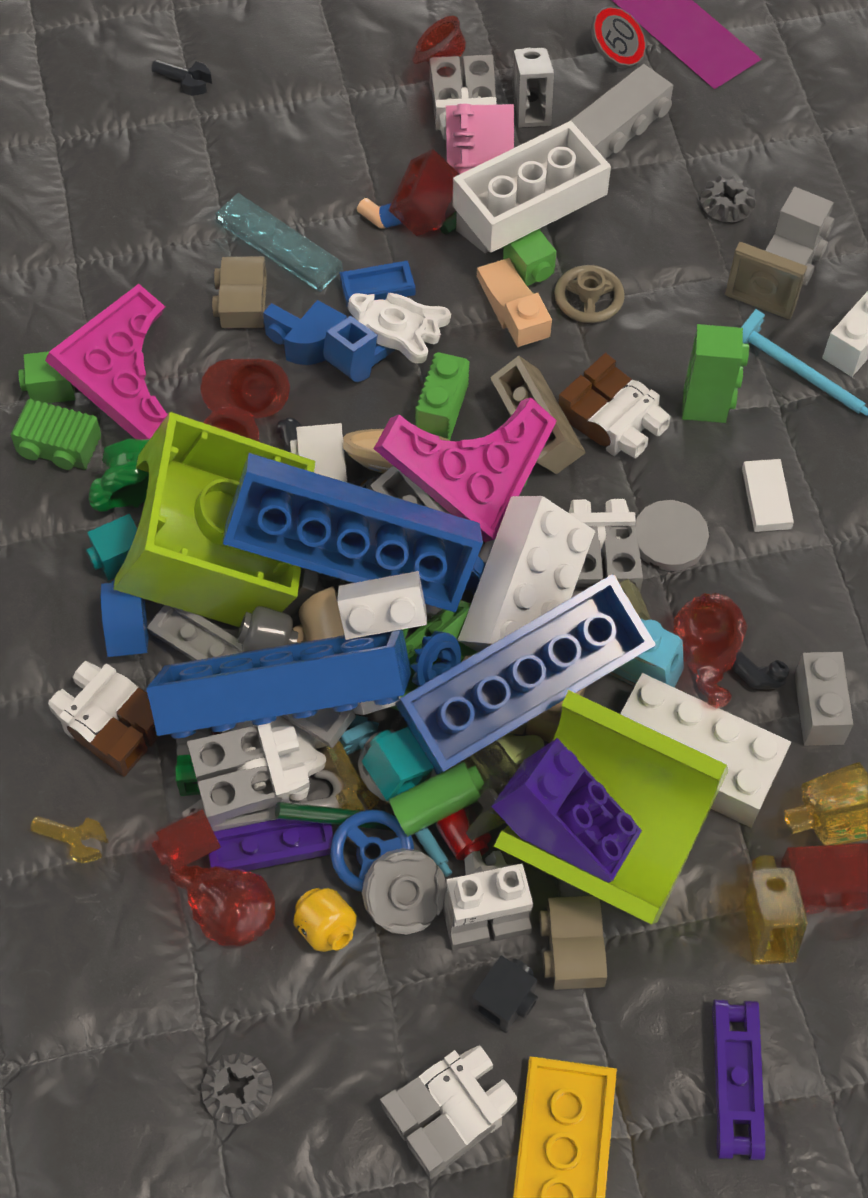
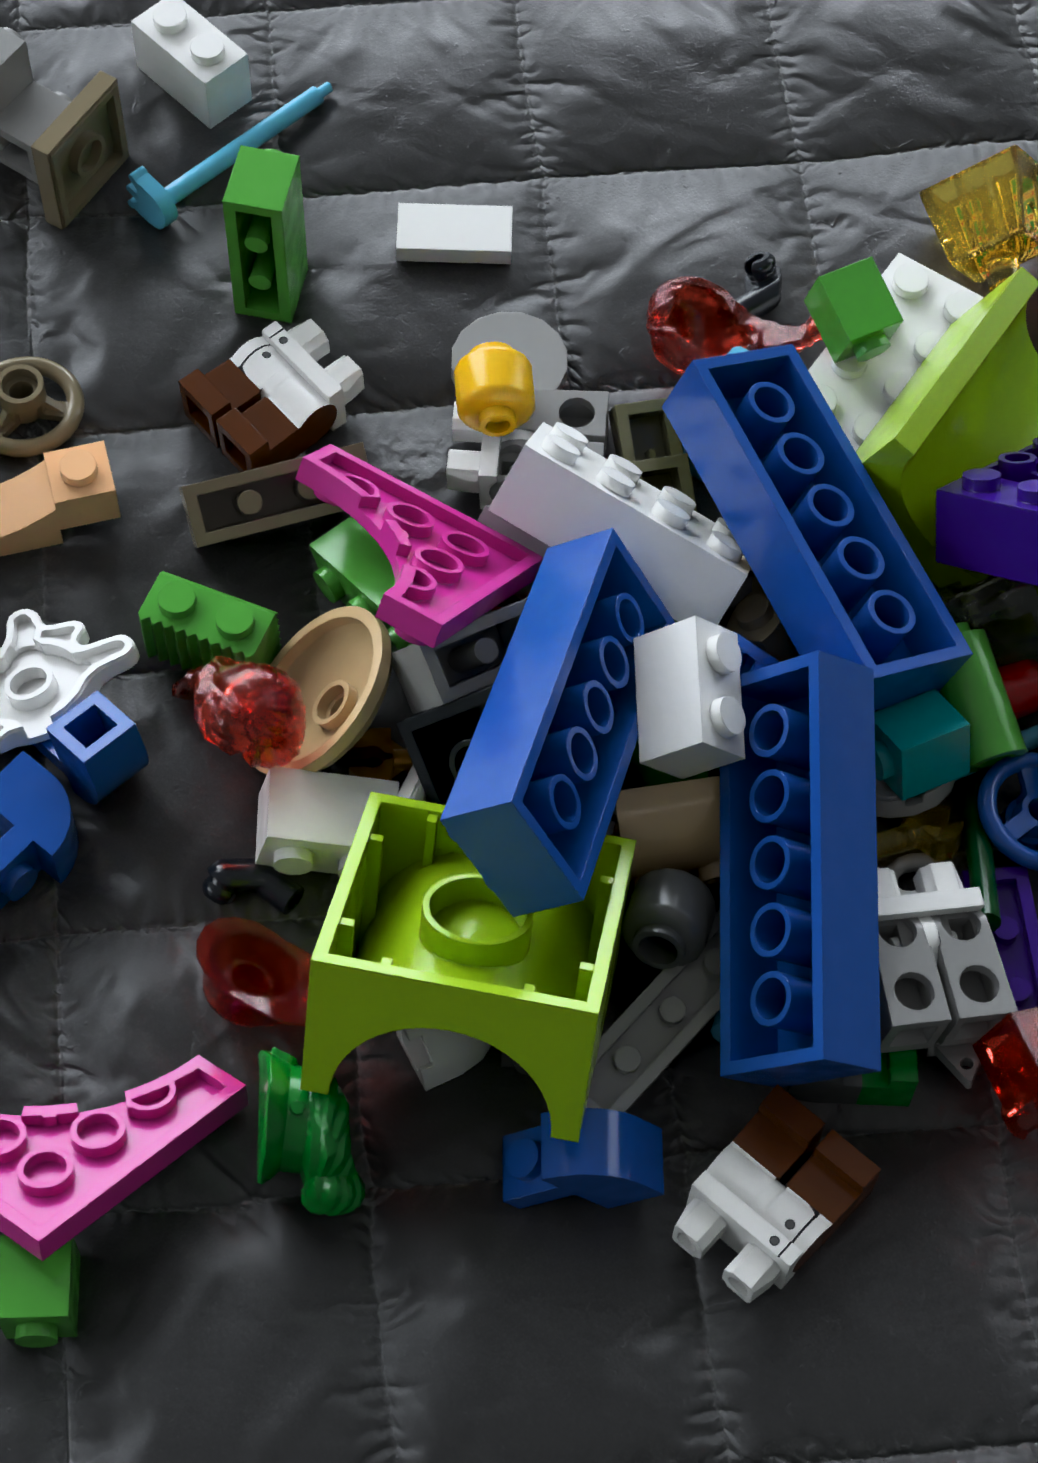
camera: 85 degrees left, 0 degrees up
(56, 435) = (176, 1277): bright green brick -> none
(73, 836) = (981, 1275): clear yellow bar -> none
(111, 545) = (439, 1173): teal brick -> none
(248, 384) = (146, 928): clear red piece -> none
(368, 402) = (247, 709): none -> clear red hair
(619, 506) = (494, 389): none -> yellow head
(711, 698) = (854, 311): none -> bright green brick
(823, 698) = (814, 217): light grey brick -> none

